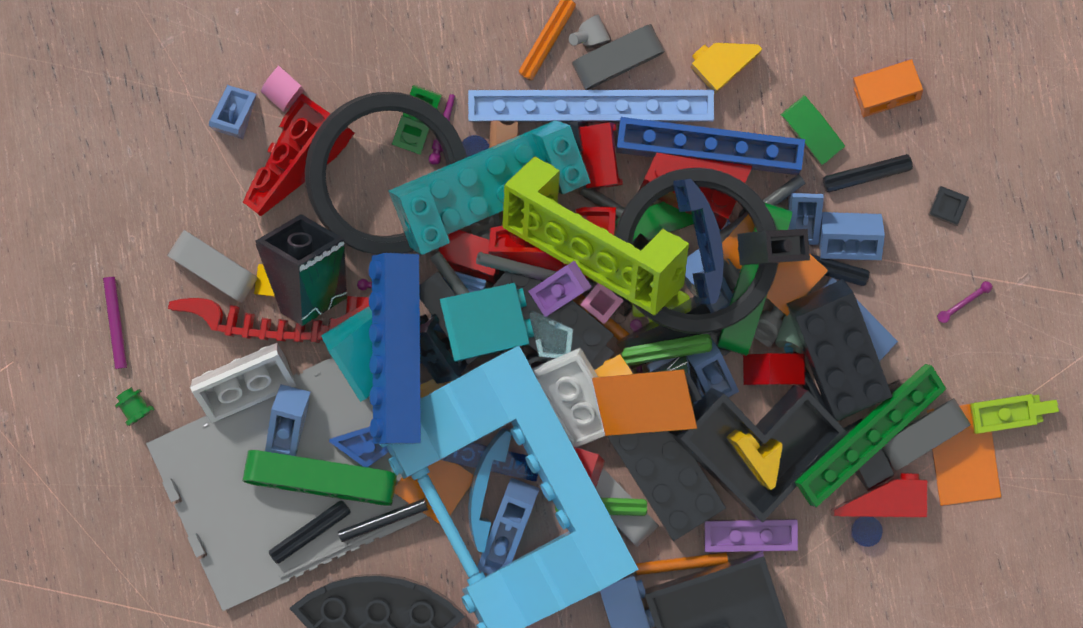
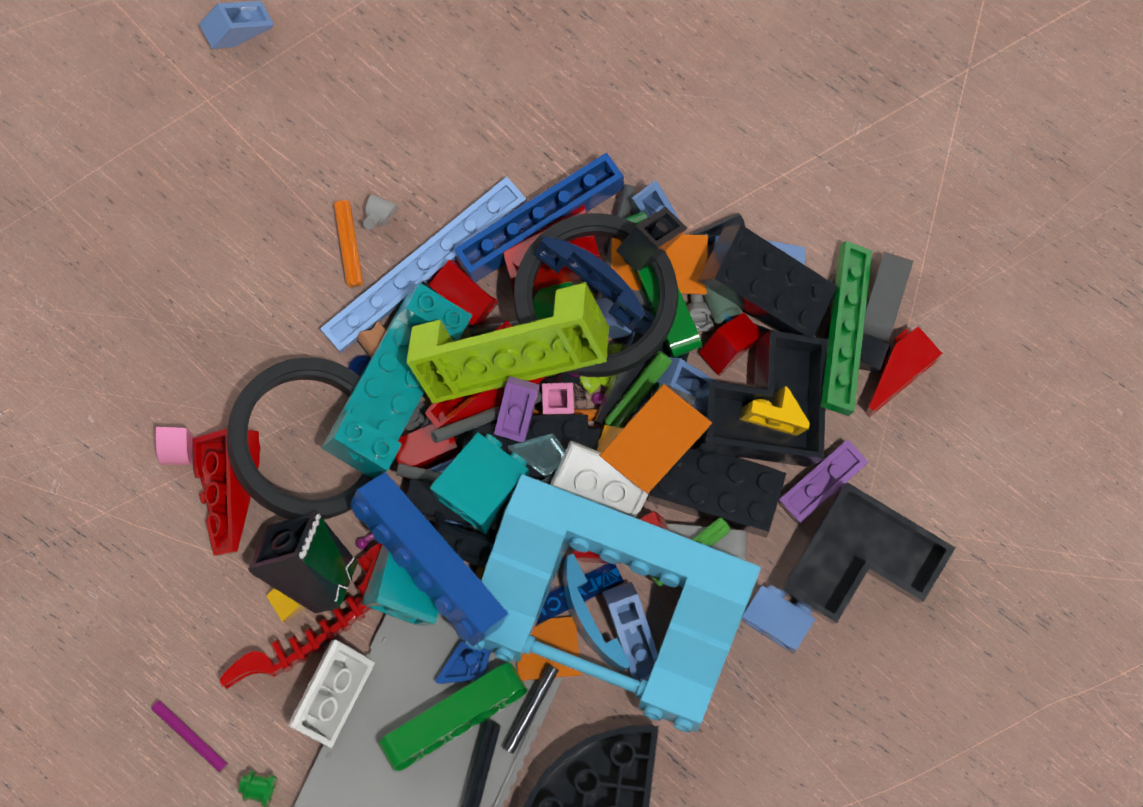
camera: 40 degrees left, 10 degrees down
(212, 266) = (231, 626): light grey beam -> none
(233, 112) = (150, 496): medium blue slope -> none
(287, 420) = (389, 693): medium blue slope -> none
(411, 132) = (301, 394): green slope -> none
(435, 157) = (332, 392): magenta piece -> none
(618, 57) = (414, 212): dark grey beam -> none
(681, 563) = (789, 549): orange piece -> none
(722, 62) = (496, 151): yellow slope -> none
(810, 125) = (595, 142): green slope -> none
(851, 236) = (704, 198): medium blue brick -> none
(866, 531) = (906, 405): clear blue tile -> none
(868, 173) = (674, 144): black axle -> none
(887, 88) = (635, 71): orange hinge -> none
(944, 316) = (823, 201): magenta hinge -> none
(948, 206) = (755, 119): black tile -> none
(966, 466) = (935, 292): orange piece -> none
(1010, 412) = (934, 228): lime hinge -> none

